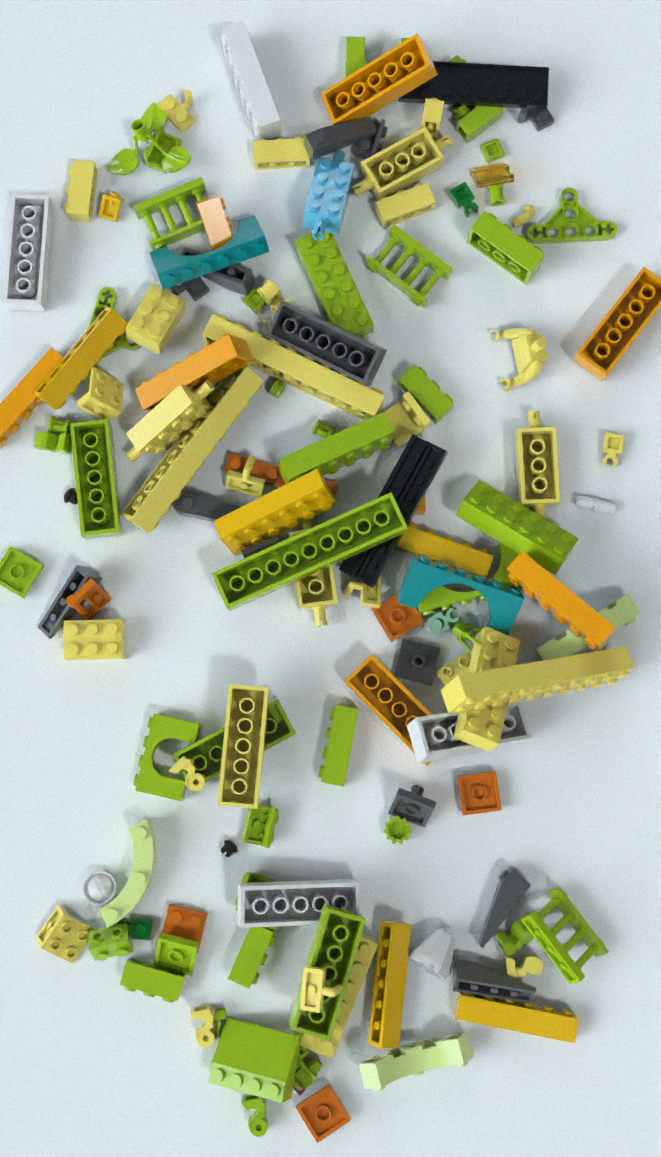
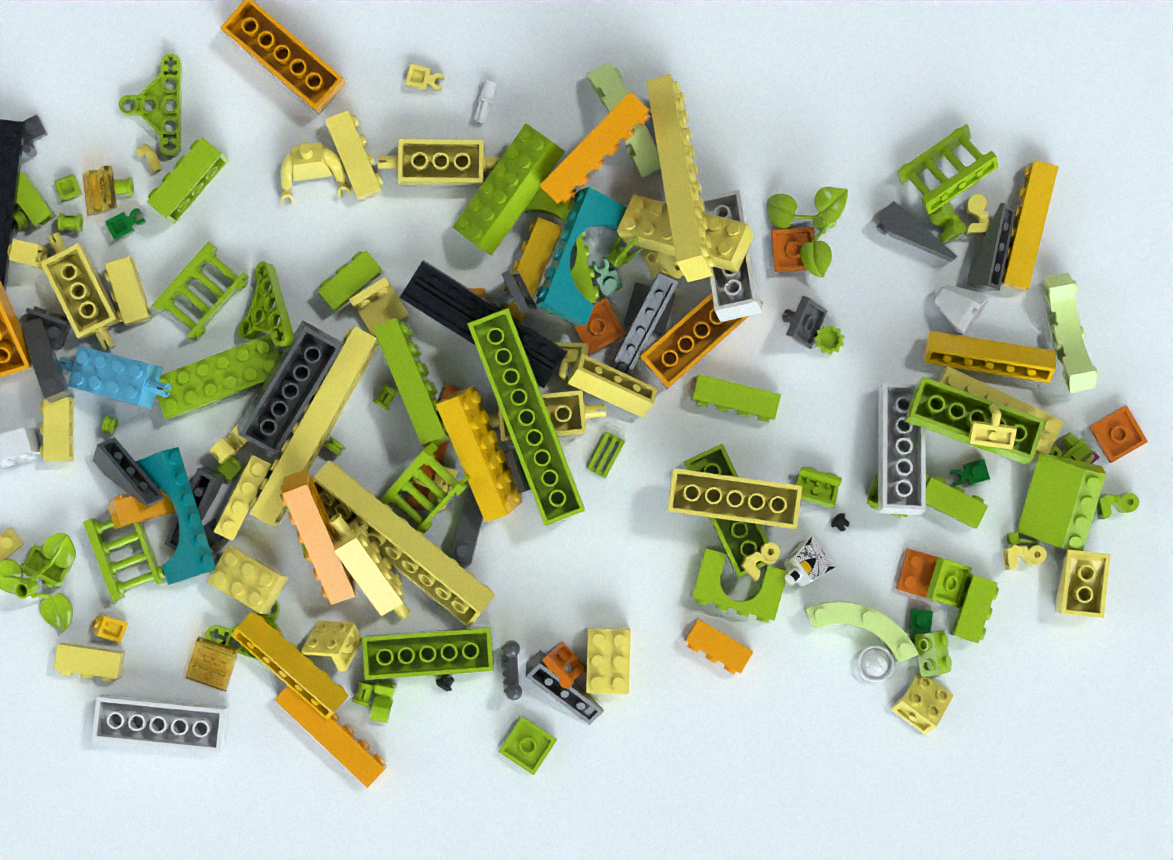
camera: 90 degrees left, 5 degrees up
(82, 294) = (212, 663): none -> clear yellow slope
(97, 552) = (511, 650): none -> dark grey gear
(110, 740) = (718, 647): none -> light orange brick
(178, 1085) = (1083, 584): none -> light yellow slope
(189, 819) = (807, 563): none -> white torso
(230, 309) = (241, 497): none -> light yellow brick
(245, 209) = (125, 472): none -> dark grey slope
(257, 455) = (415, 470): none -> lime fence
(280, 973) = (973, 472): none -> green plate
(287, 196) = (109, 425): none -> lime bush
(296, 636) = (614, 439): none -> lime tile
(343, 630) = (612, 385): none -> light yellow brick
(395, 322) = (263, 304): none -> lime beam
(396, 653) = (644, 322): none -> plate
(423, 538) = (517, 293): none -> dark grey tile
(462, 153) = (70, 222): none -> lime bush
(522, 823) = (831, 203): none -> lime plant
(538, 390) = (353, 154): none -> light yellow brick

